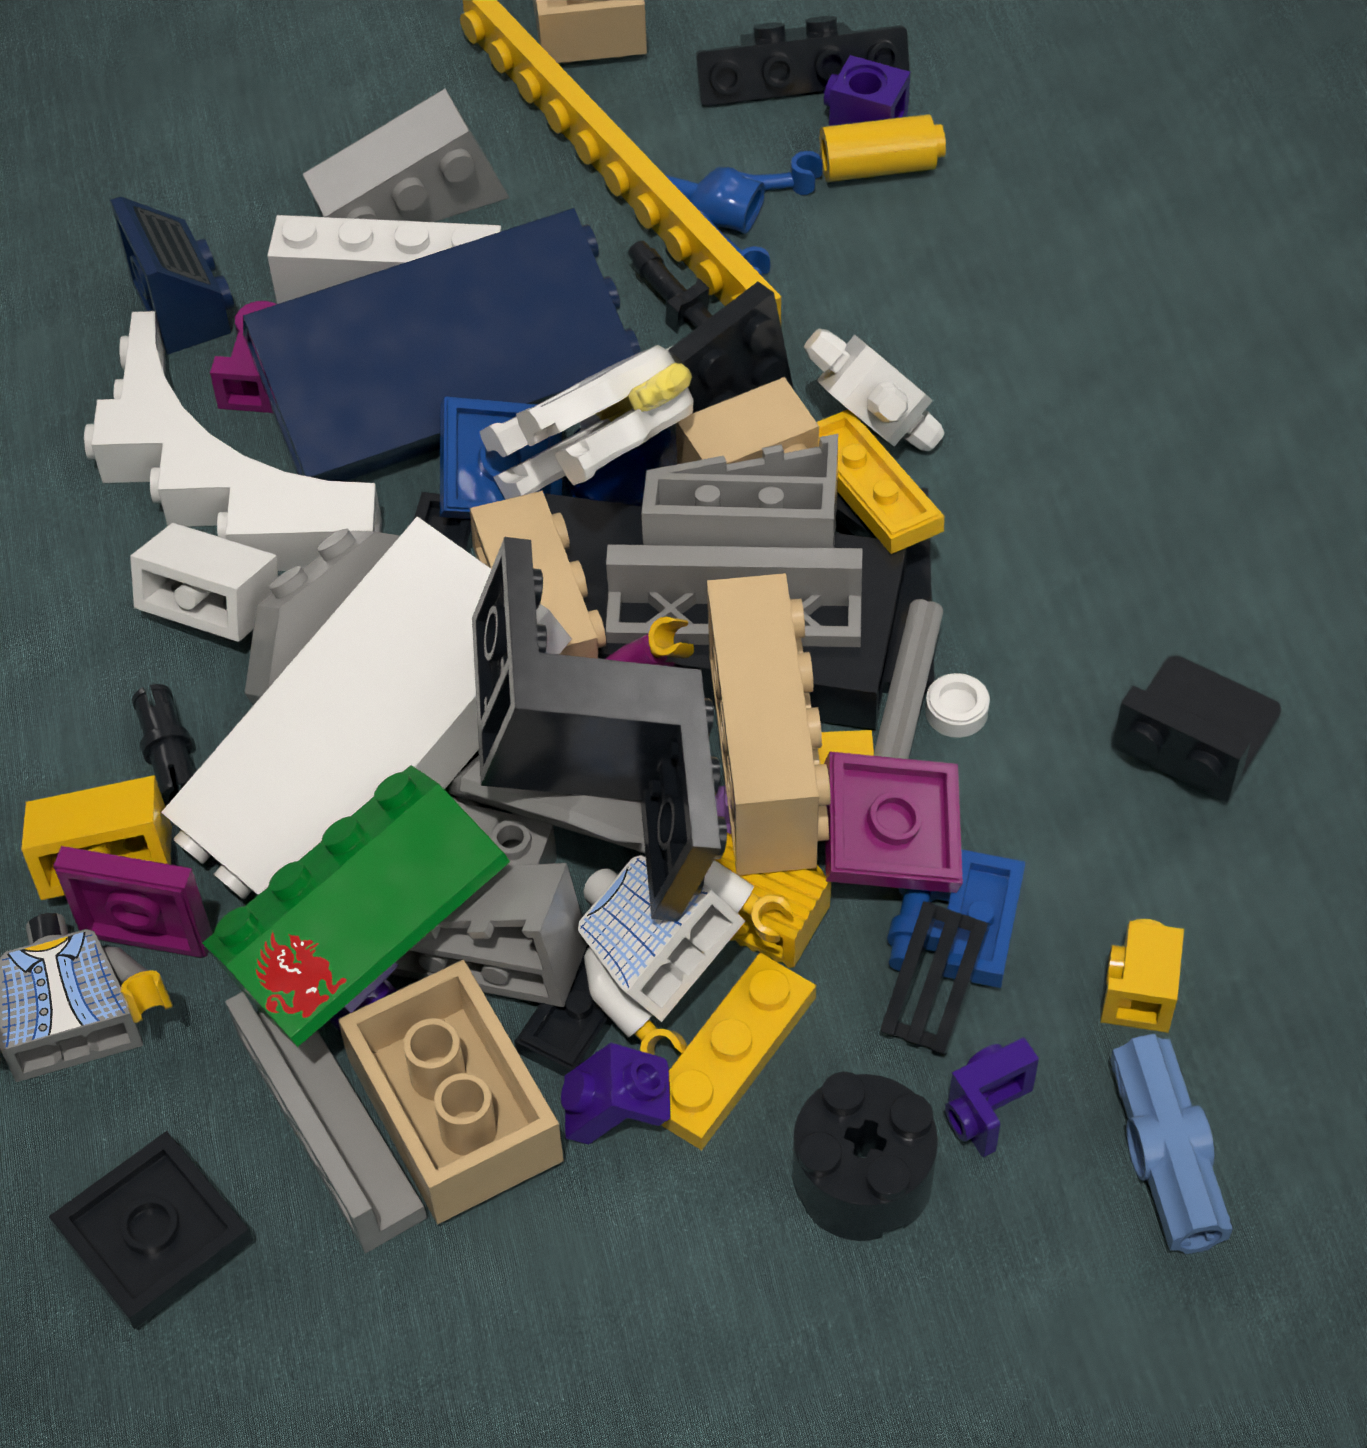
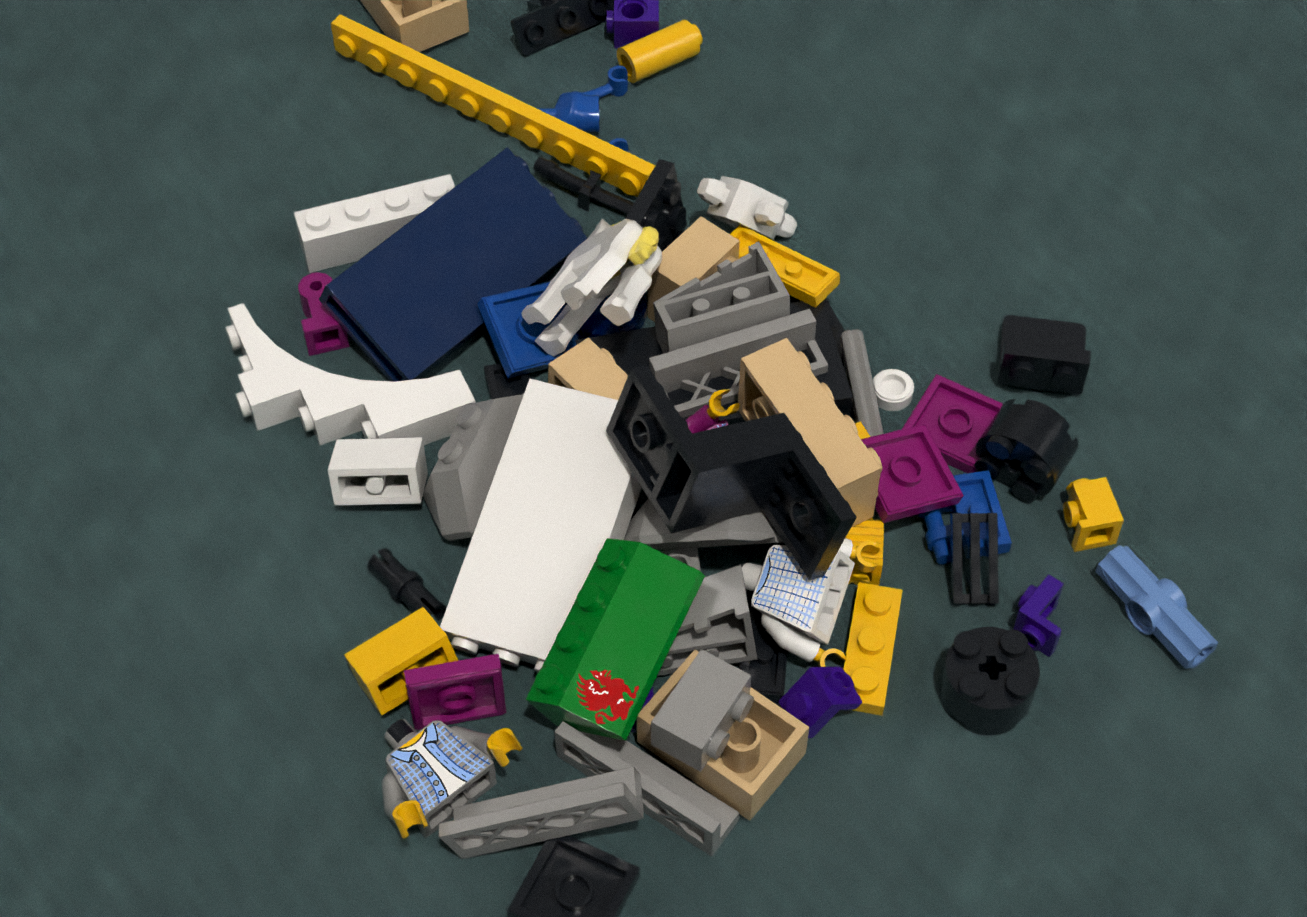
camera: 25 degrees left, 0 degrees up
(158, 1106) = (545, 813): none -> light grey fence
(173, 275) = (236, 275): dark blue slope -> none
(409, 169) = (361, 155): light grey wedge -> none
(413, 1044) = (702, 710): none -> light grey brick
(1025, 784) = (955, 420): none -> magenta tile
(1088, 849) = (1026, 448): none -> black brick

